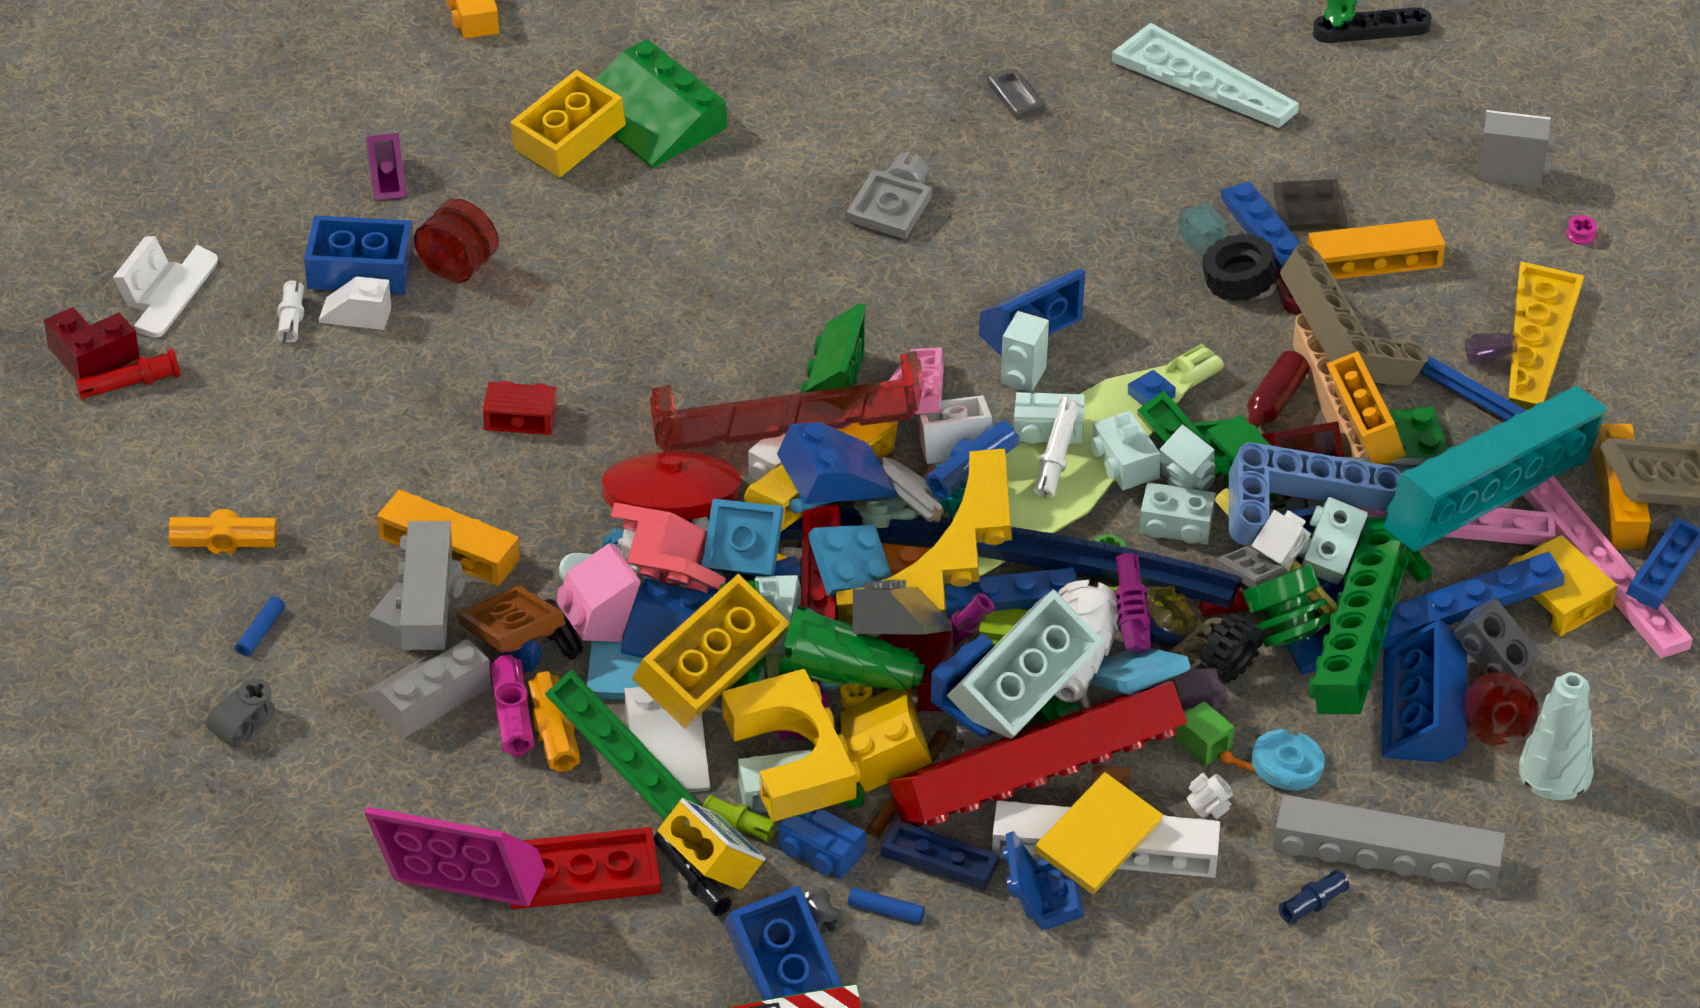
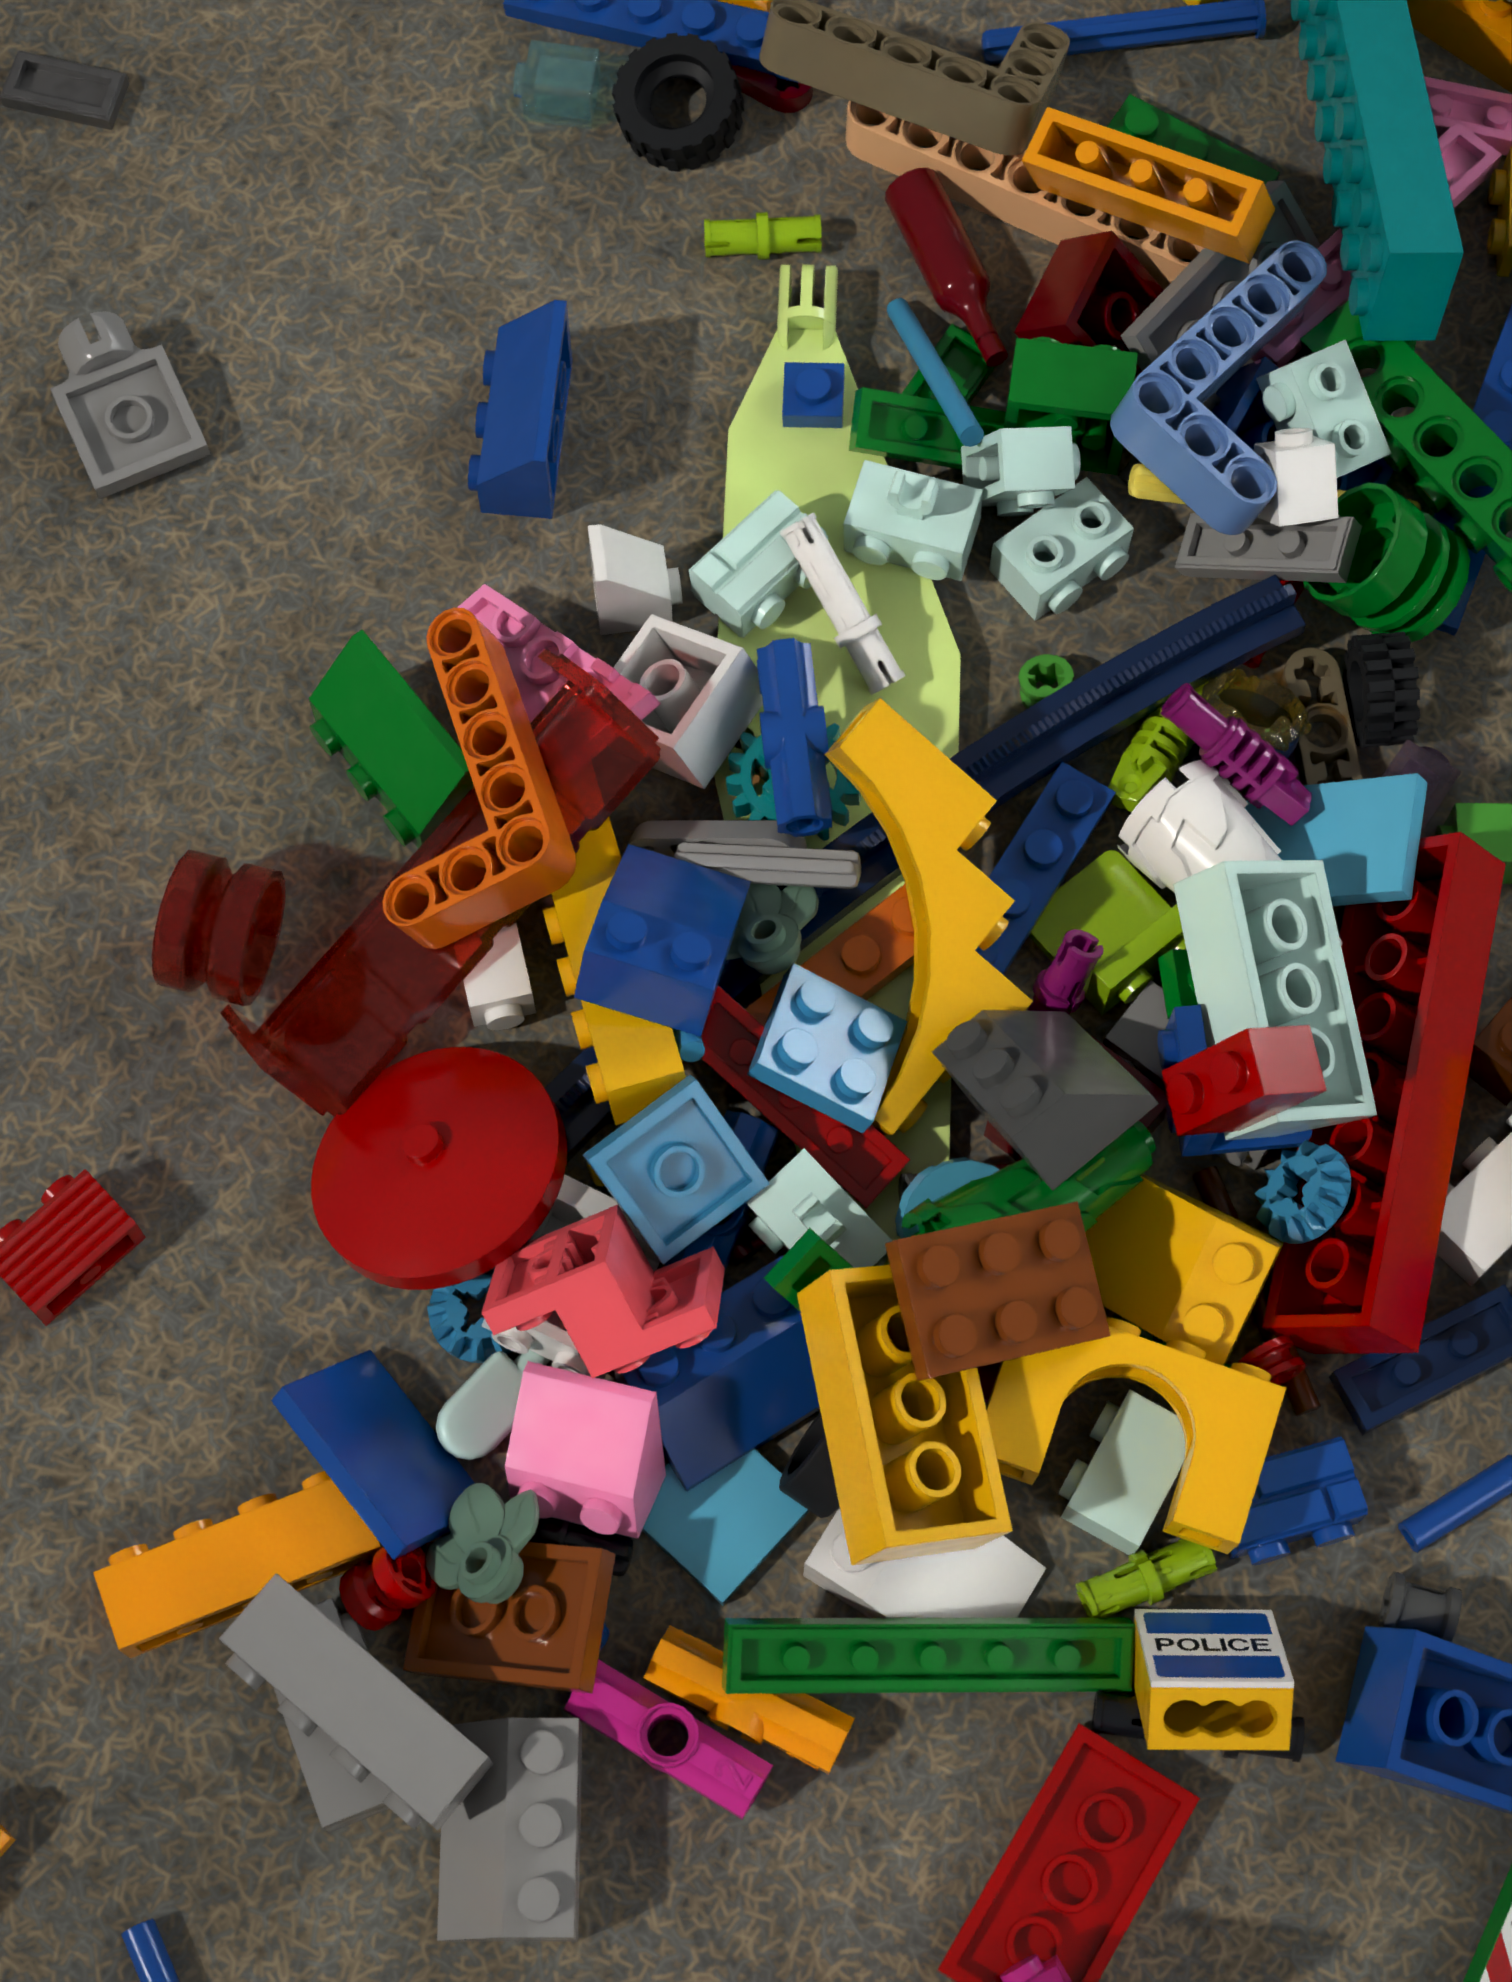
camera: 50 degrees left, 25 degrees up
(484, 580) = (387, 1581): none -> red wheel
(523, 590) = (484, 1544): none -> sand green plate
(535, 543) = (376, 1450): none -> blue tile
(697, 358) = (218, 927): none -> clear red wheel
(790, 639) = (997, 1290): none -> dark orange plate
(842, 388) = (485, 716): none -> orange beam
(874, 795) = (1276, 1359): none -> red bush
(957, 745) = (1323, 1194): none -> dark azure gear
(960, 650) = (1243, 1080): none -> red brick
(994, 379) = (630, 580): none -> white slope
(1024, 352) = (608, 483): light aqua brick -> none
(1208, 413) = (935, 373): none -> dark azure bar
(1213, 335) = (762, 235): none -> lime pin

